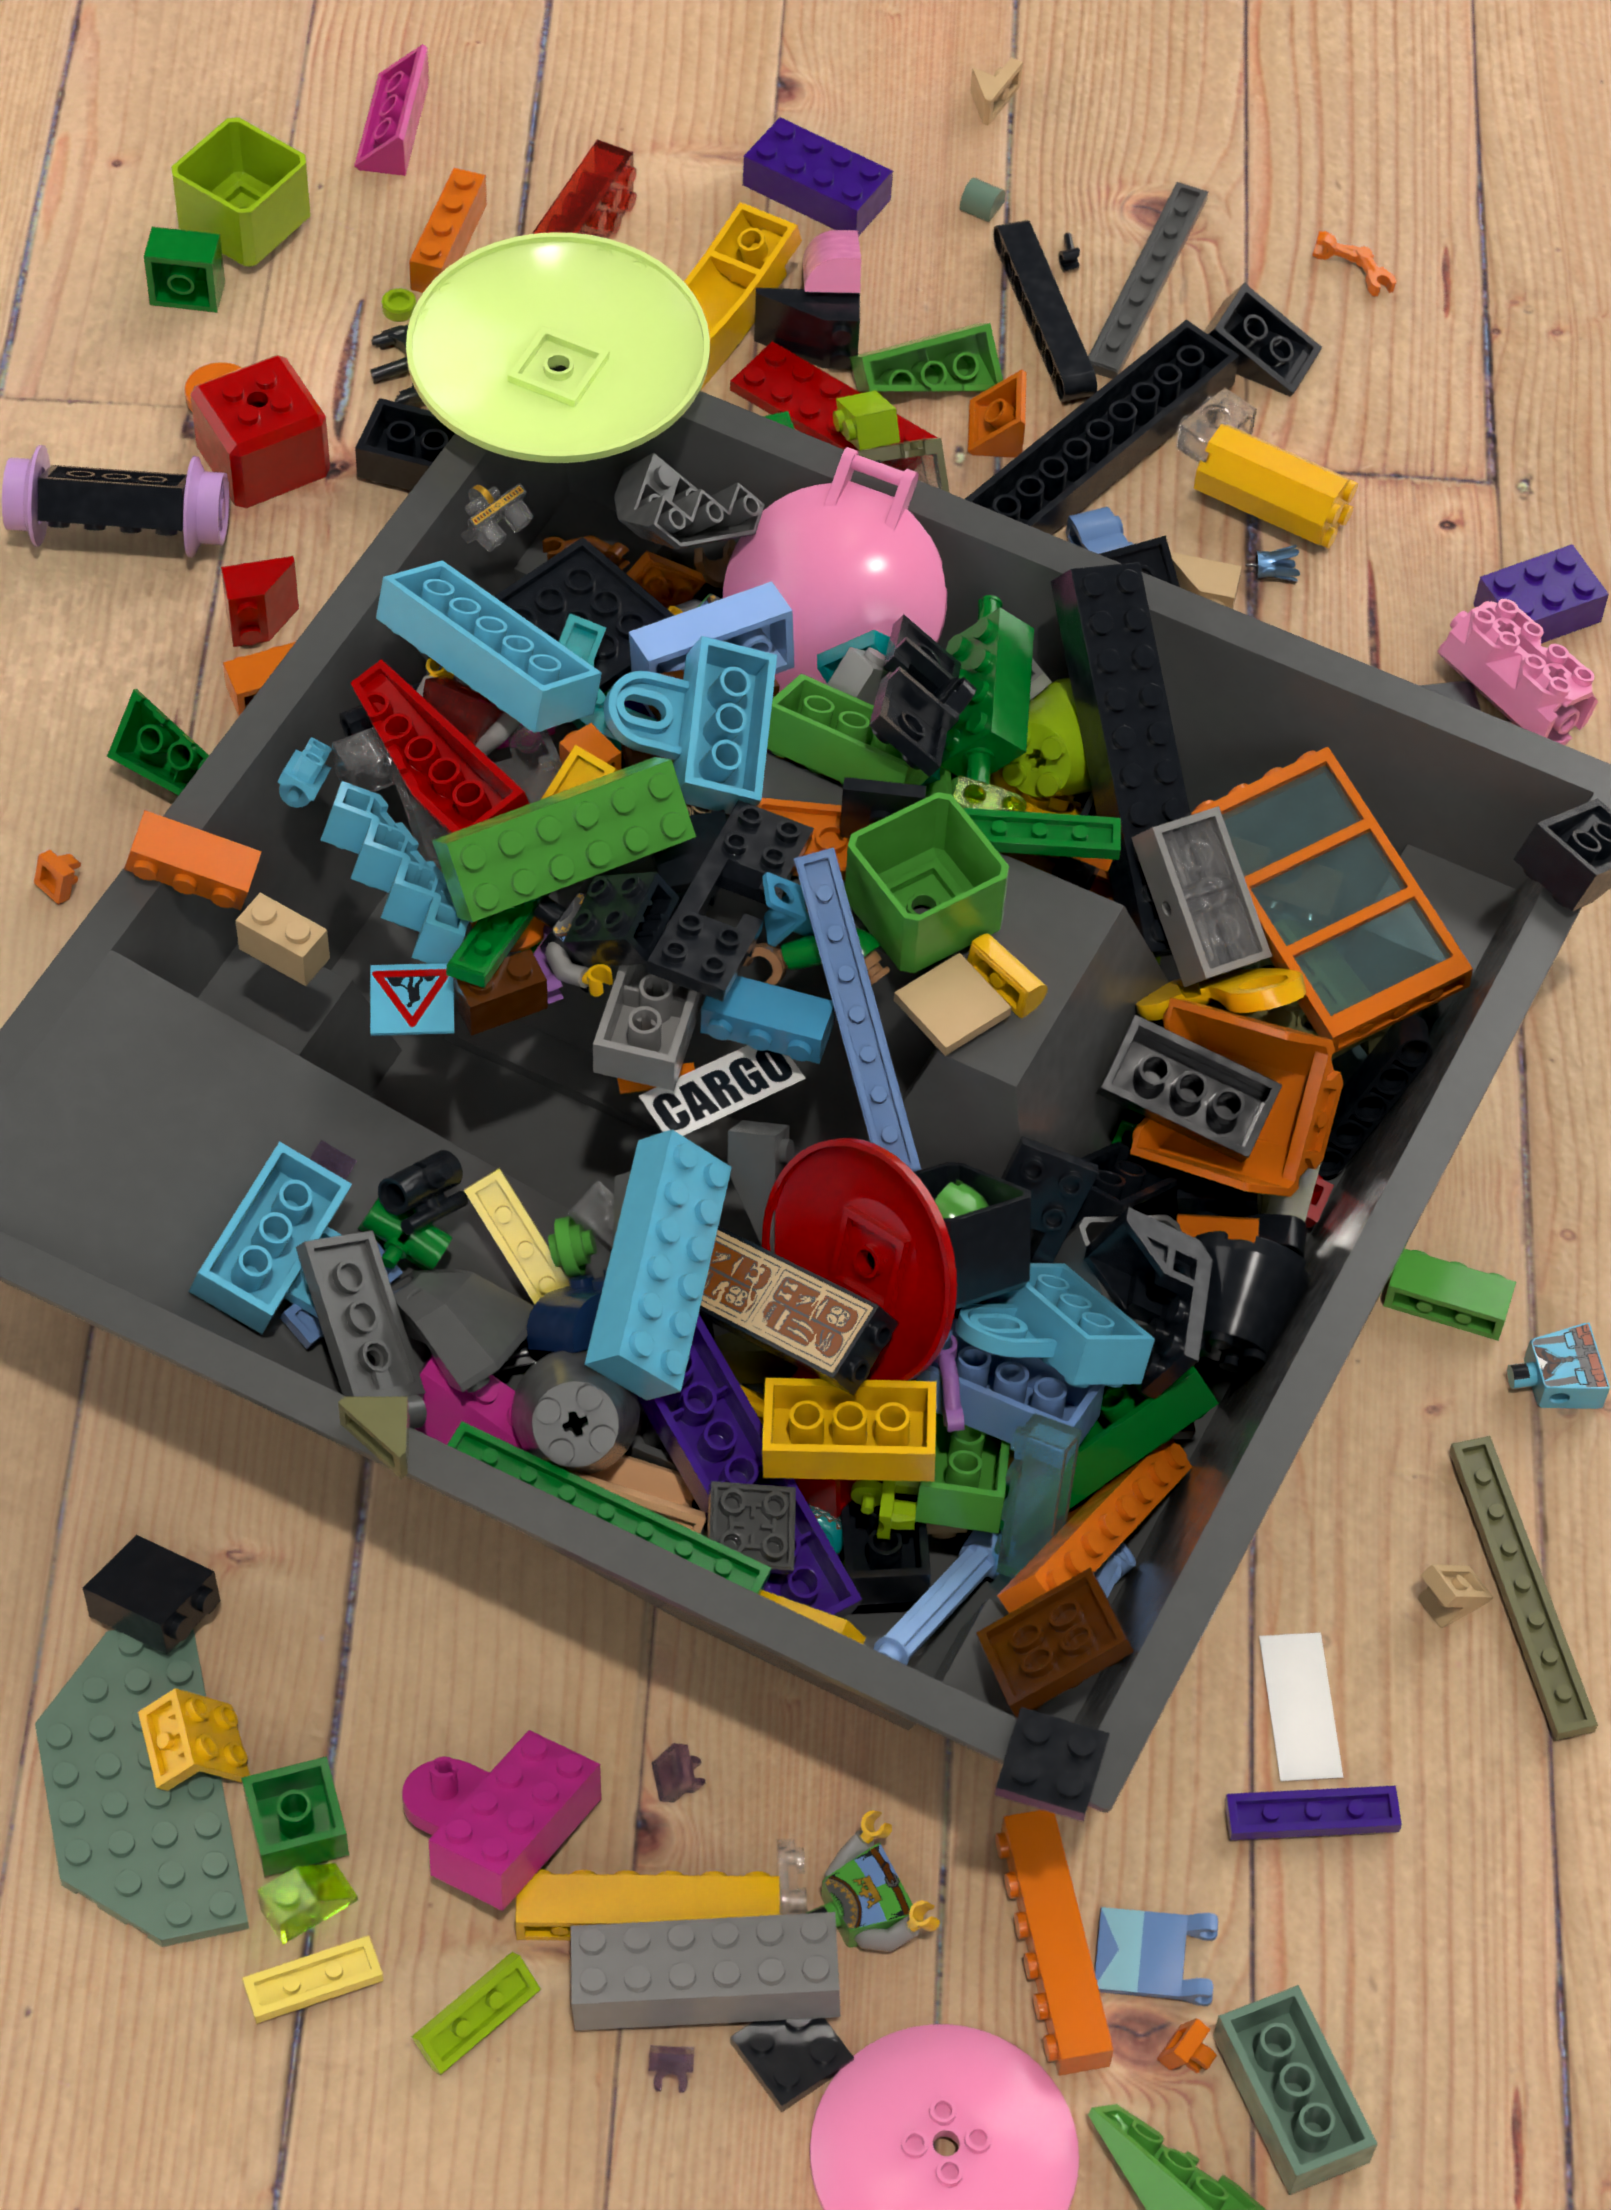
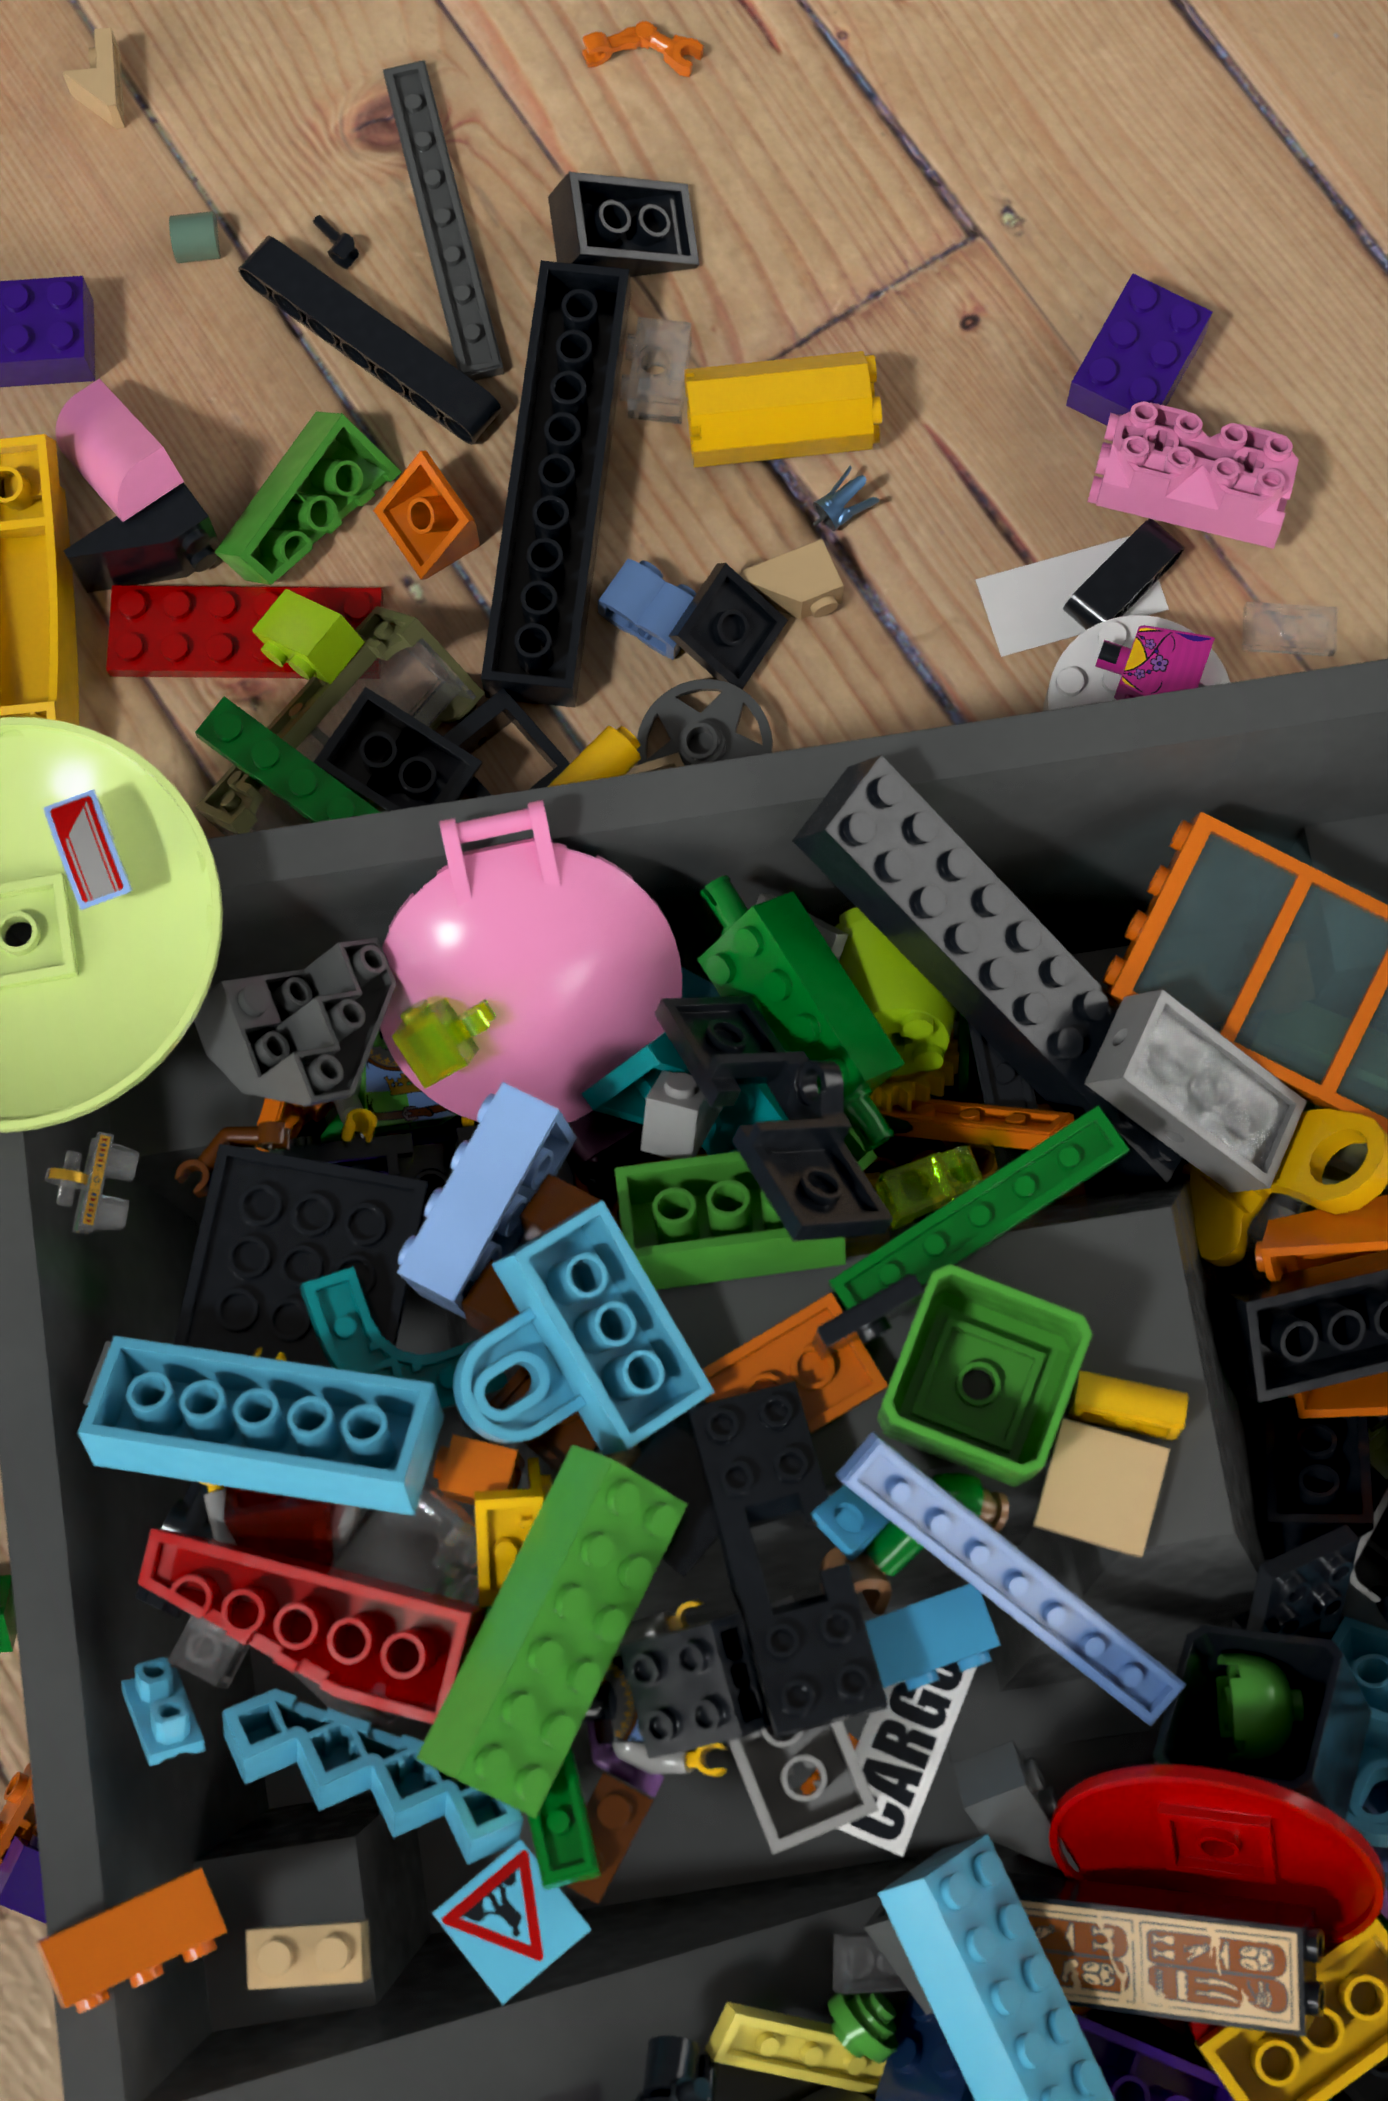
camera: 30 degrees left, 20 degrees up
(632, 332) = (87, 849): none -> slope
(757, 565) = (439, 1040): none -> clear neon green brick

